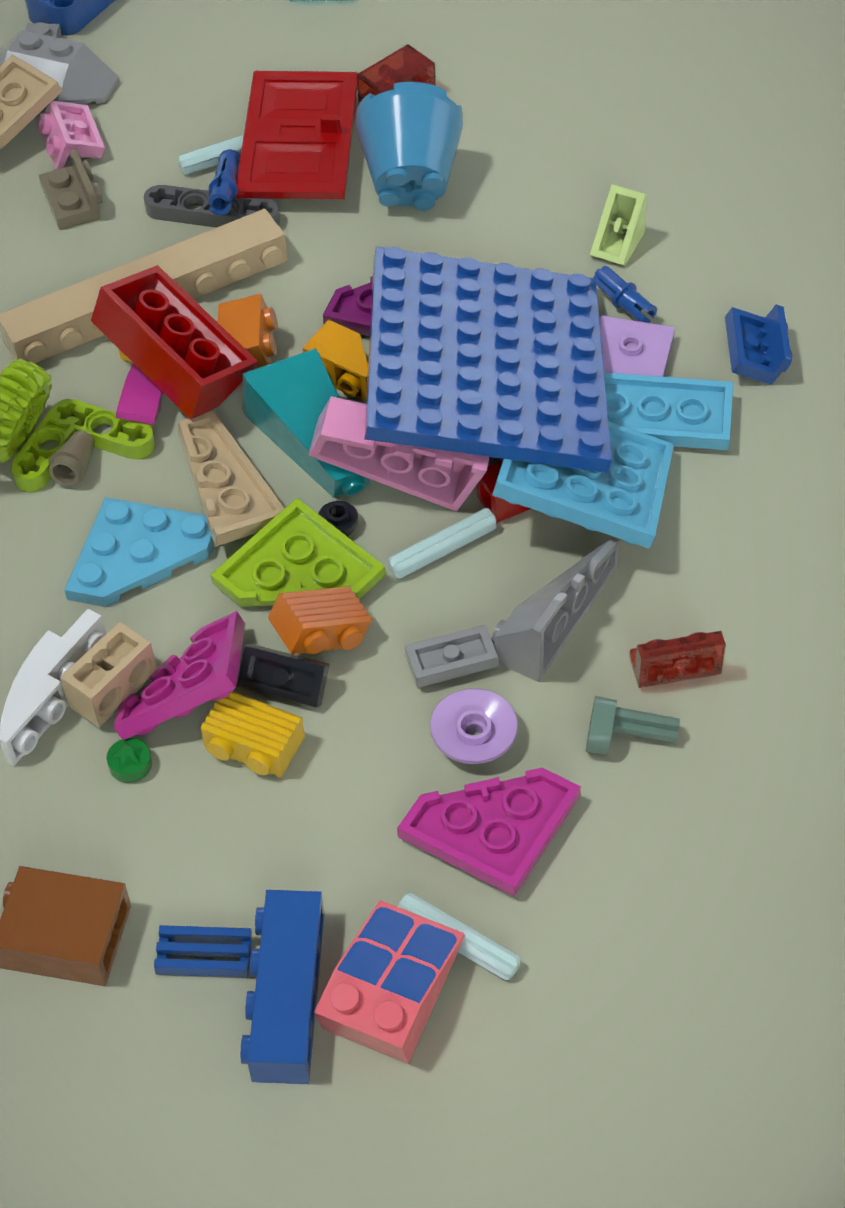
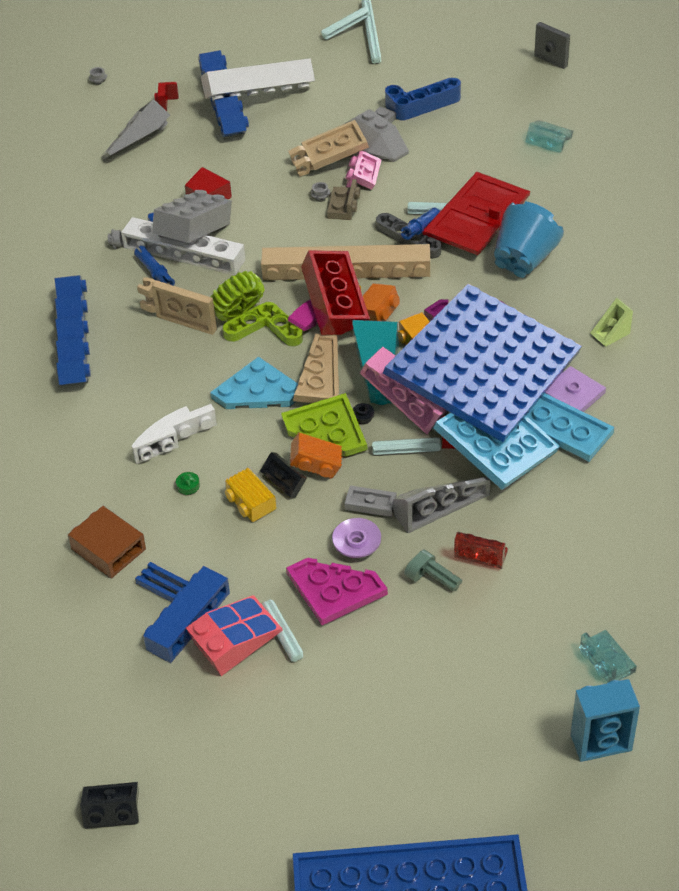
camera: 30 degrees right, 5 degrees down
(21, 189) = (320, 191): none -> light grey plate
(72, 459) = (254, 332): dark tan cone -> none
(108, 674) = (201, 438): tan brick -> none
(180, 684) = (236, 456): dark pink plate -> none
(400, 66) = (554, 199): clear red brick -> none
(624, 294) = (591, 360): blue axle -> none
(758, 344) = (642, 413): blue bracket -> none

